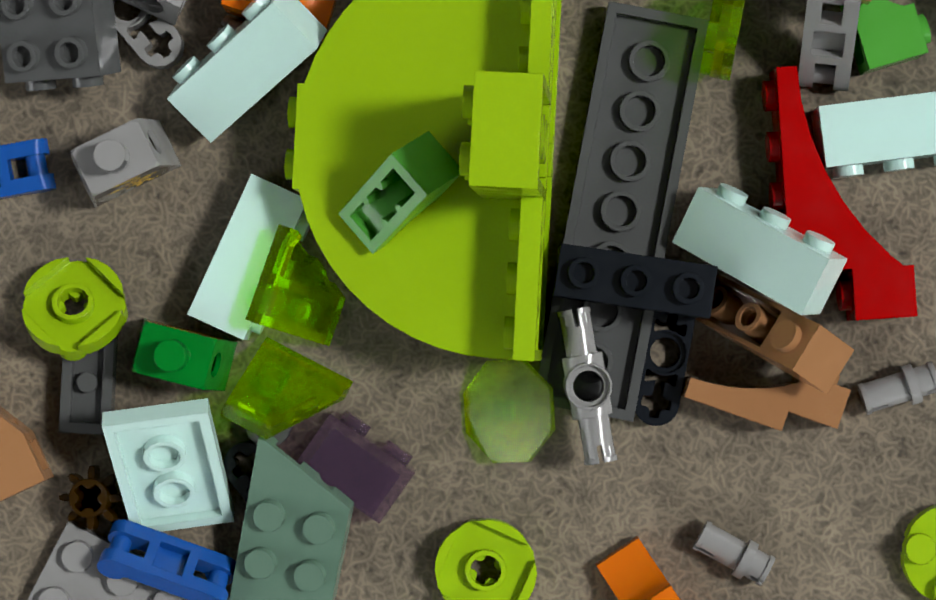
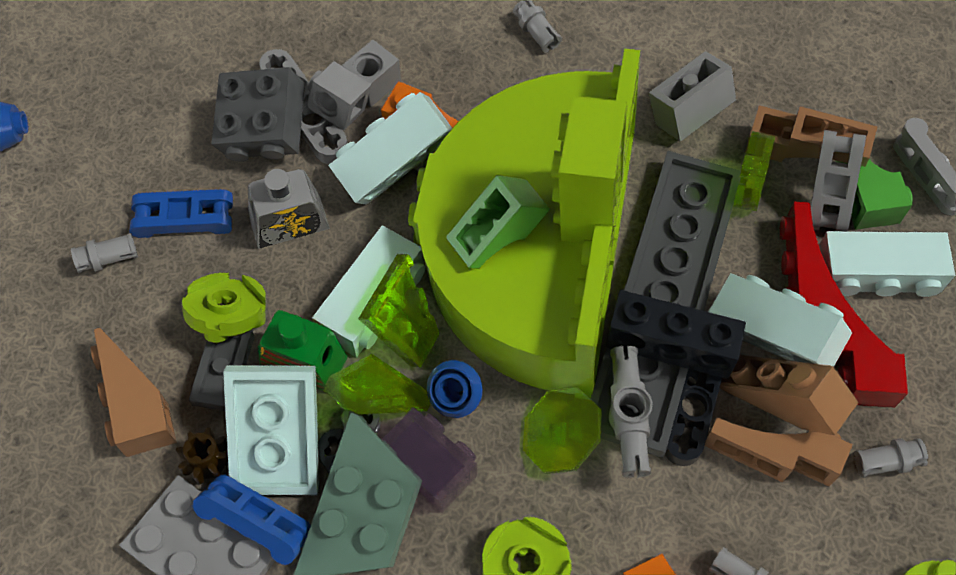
camera: 10 degrees right, 25 degrees down
(376, 377) = (445, 389): none -> blue cone

